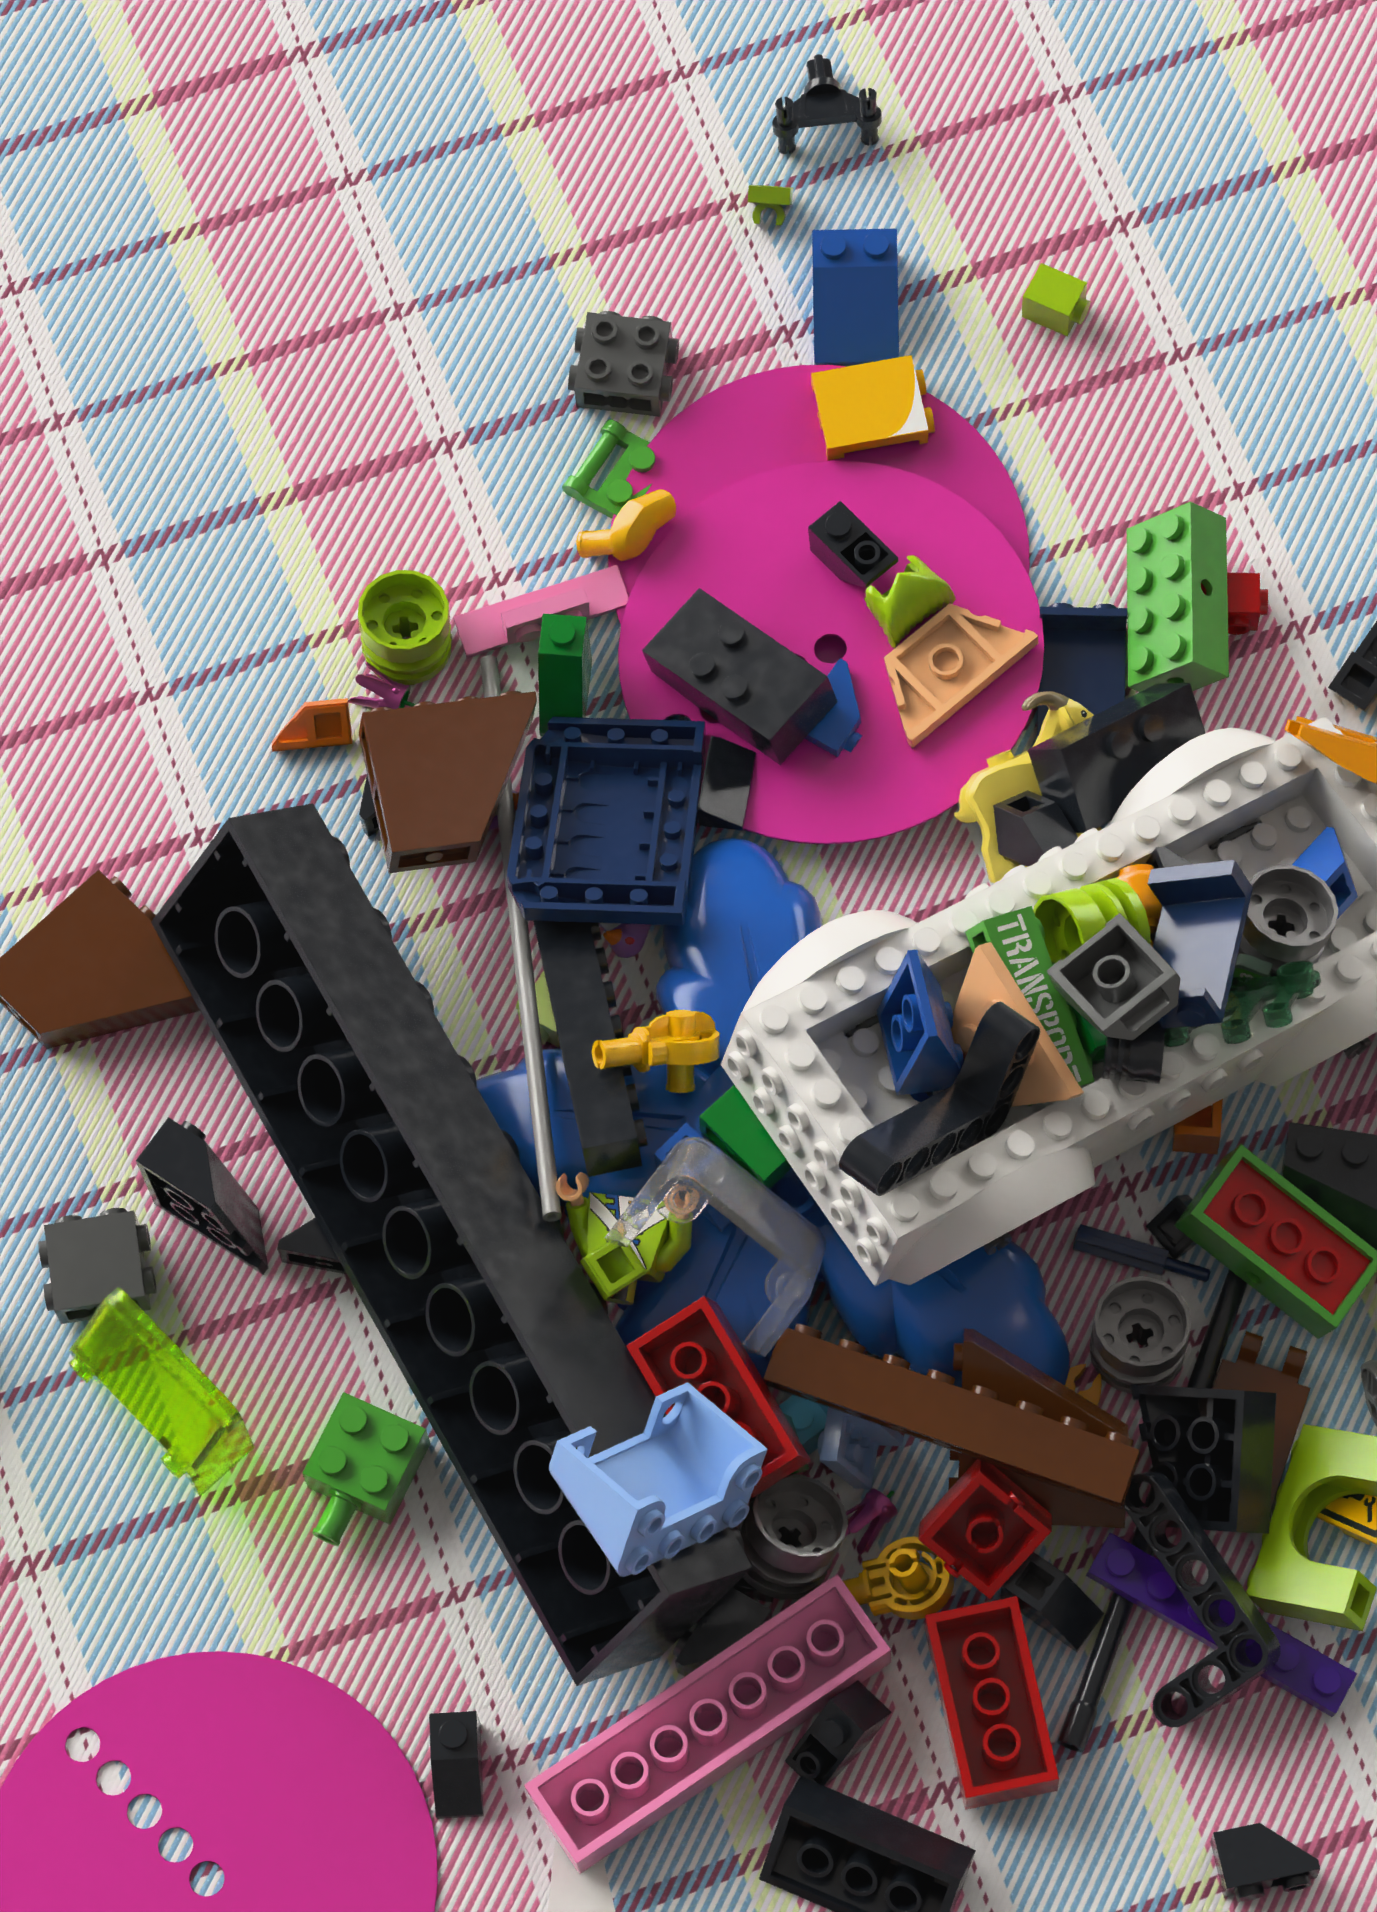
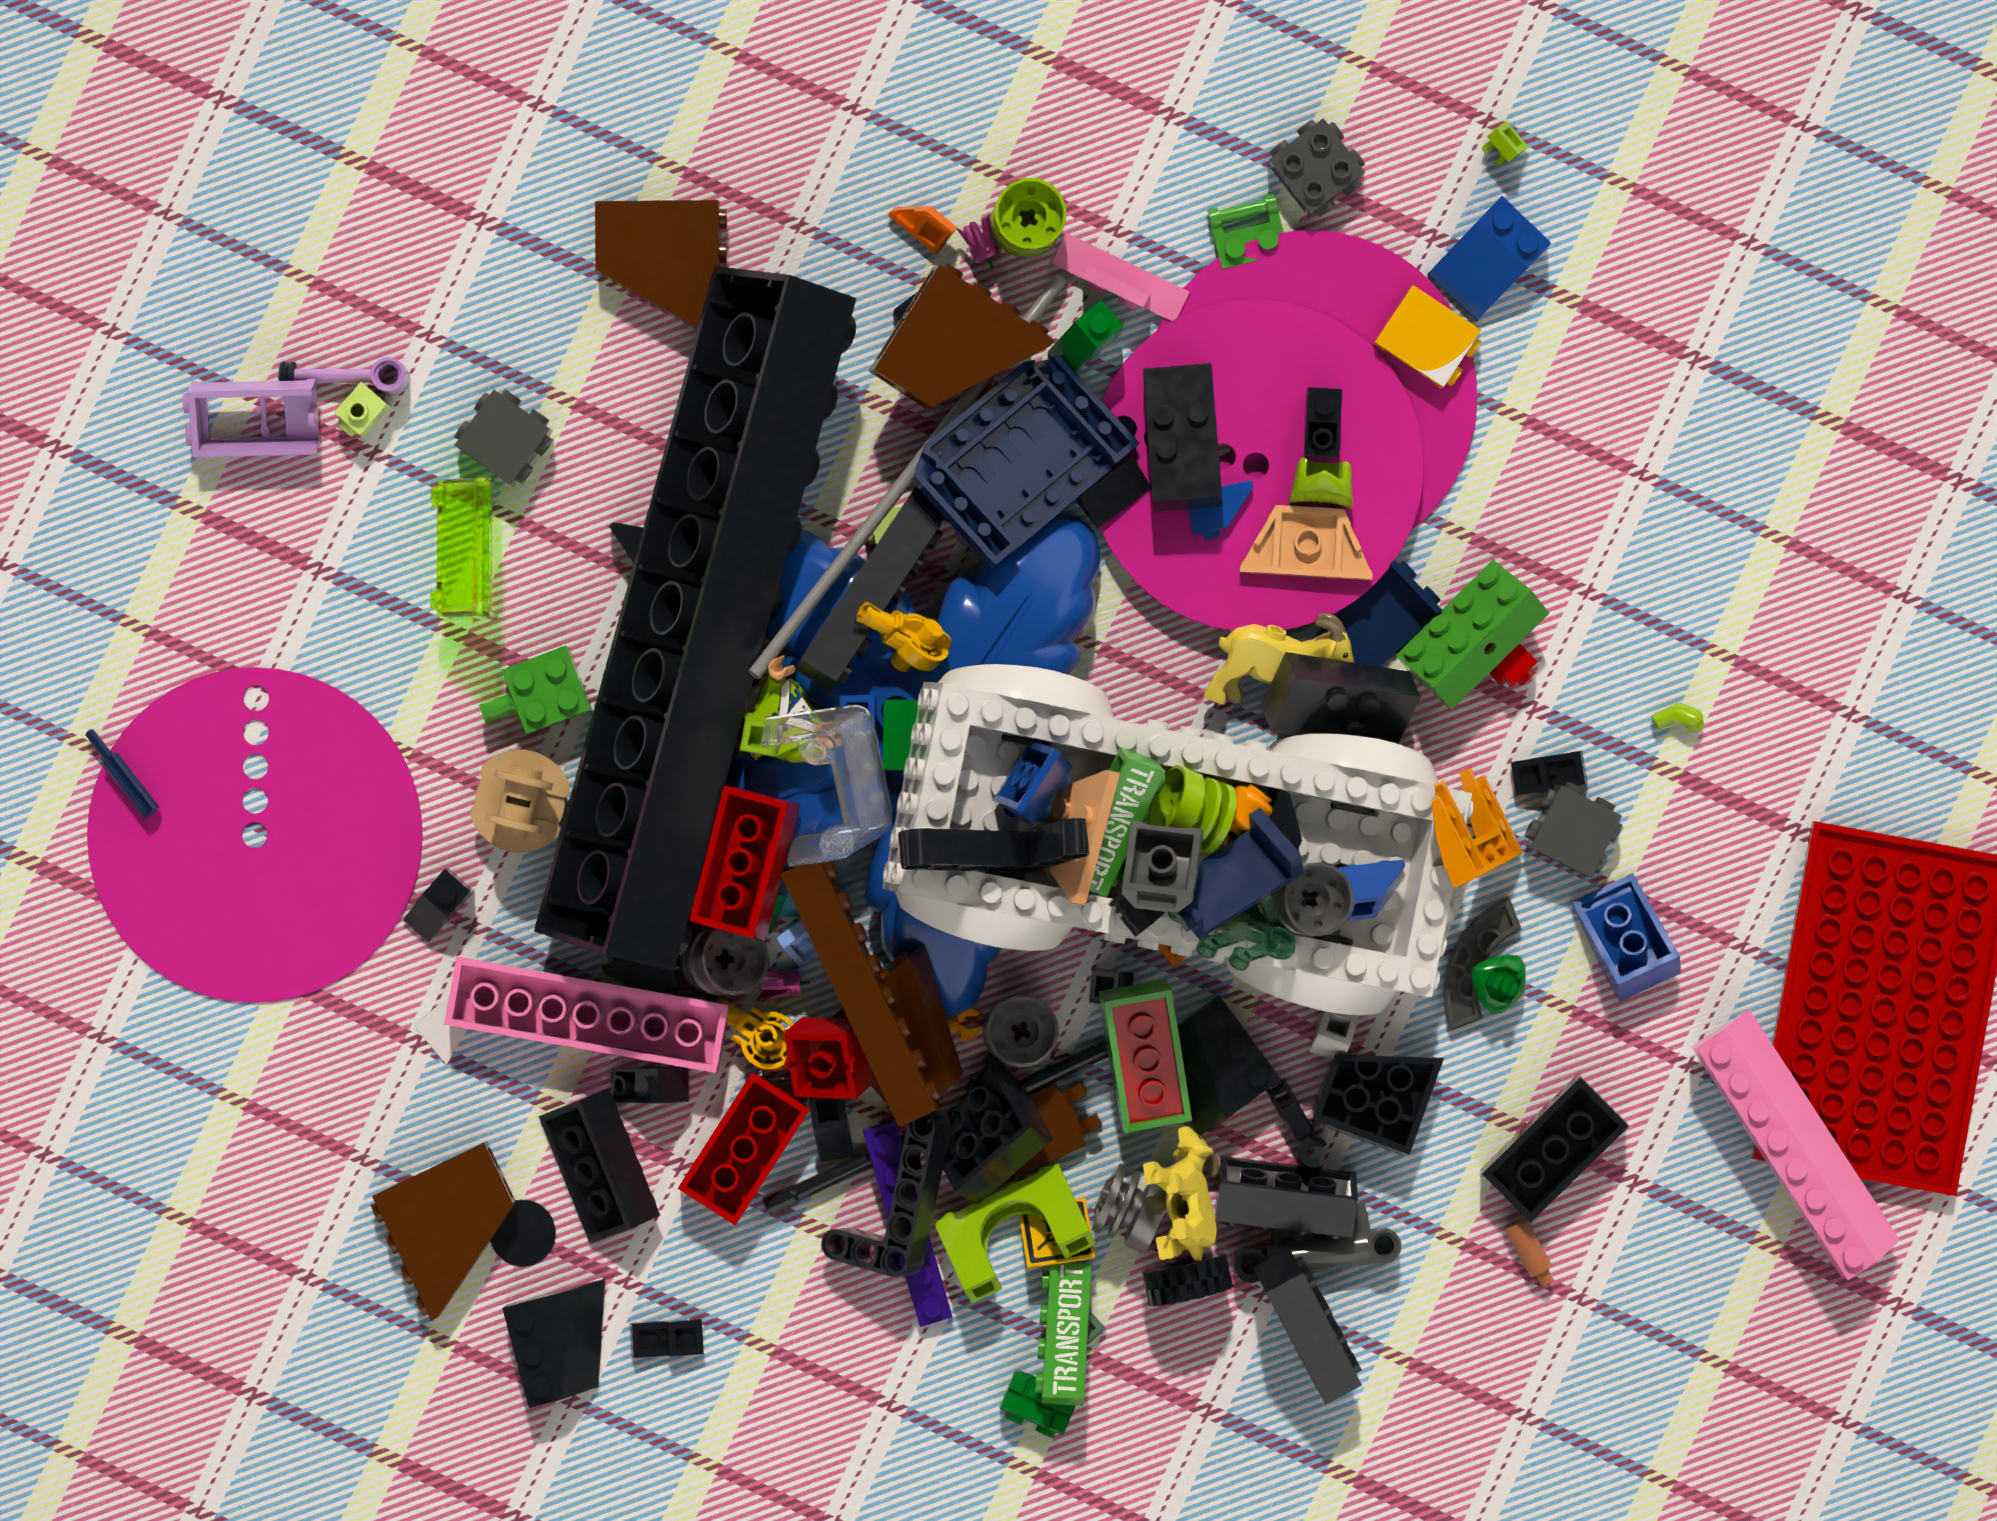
camera: 35 degrees right, 20 degrees up
(201, 1192) = (597, 459): black wedge -> none
(441, 1584) = (520, 801): none -> tan piece
(631, 528) = (1218, 280): yellow arm -> none
(663, 1486) = (660, 888): light blue windscreen -> none
(825, 105) = (1596, 115): black axle -> none
(1030, 827) = (1246, 702): black slope -> none
(1055, 300) = (1602, 374): lime brick -> none
(1133, 1253) = (1071, 983): dark blue axle -> none
(1259, 1859) = (801, 1360): black slope -> none

